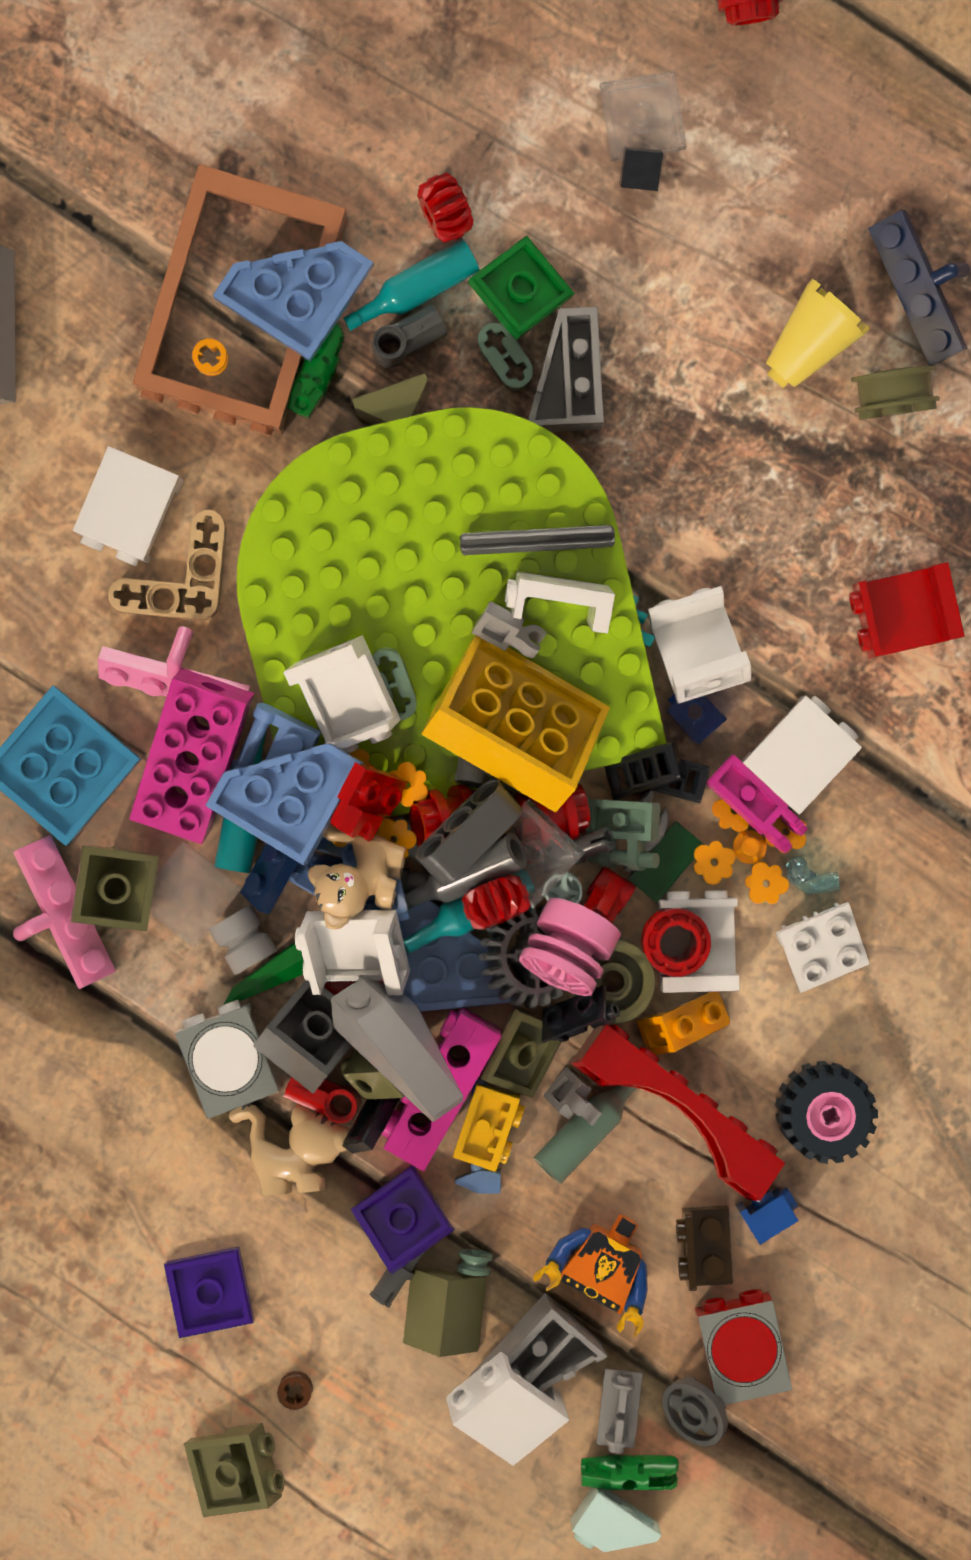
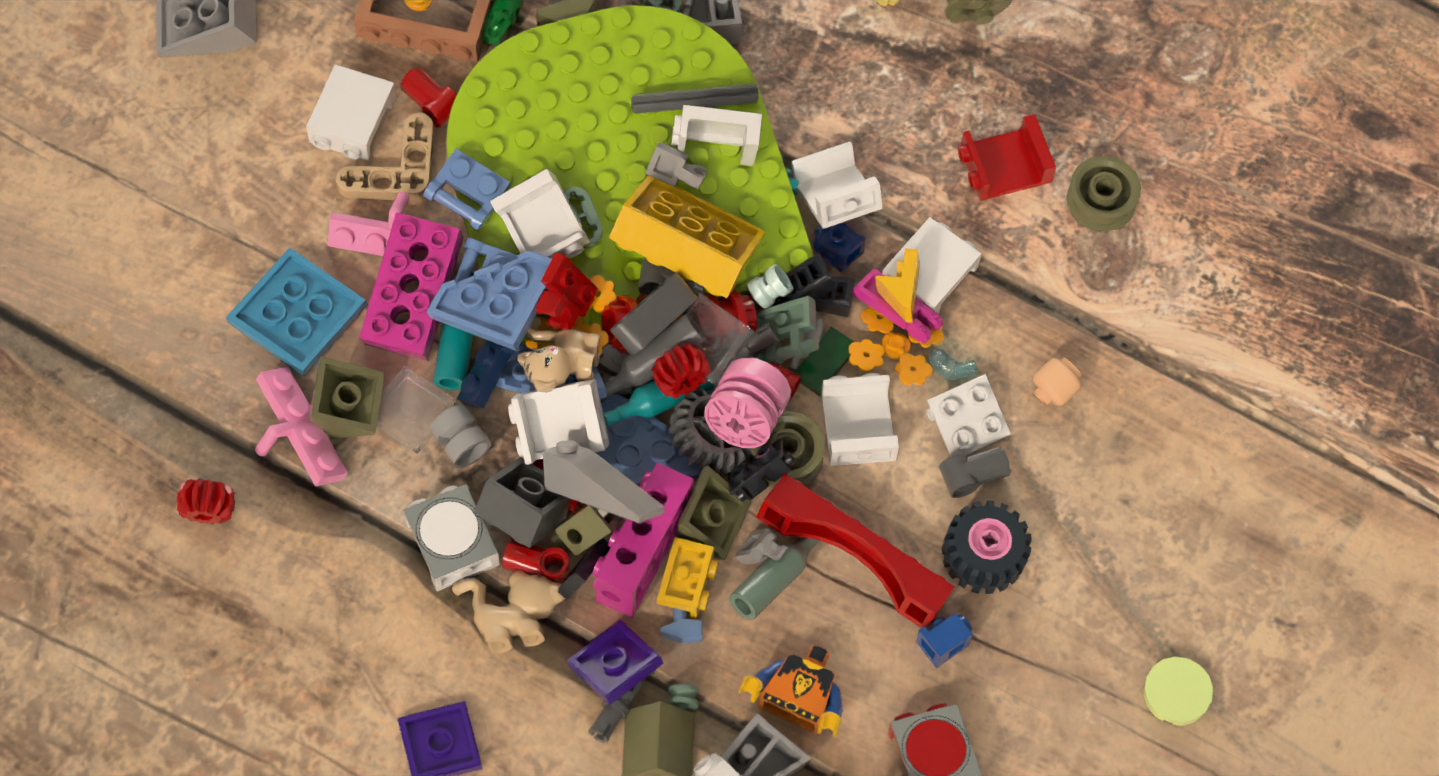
camera: 10 degrees left, 25 degrees down
(228, 493) = (429, 95): none -> red piece
(264, 632) = (472, 181): none -> medium blue plate
(276, 971) = (490, 464): green bar -> none
(605, 777) = (770, 286): none -> light aqua wheel
(684, 1024) = (853, 481): light orange bracket -> none
(696, 952) = (844, 394): red piece -> none
(705, 1246) = (892, 674): dark brown bracket -> none
(764, 805) = (902, 289): none -> yellow slope
(812, 1016) = (966, 474): none -> dark grey piece
(930, 910) = (1056, 381): none -> light nougat head

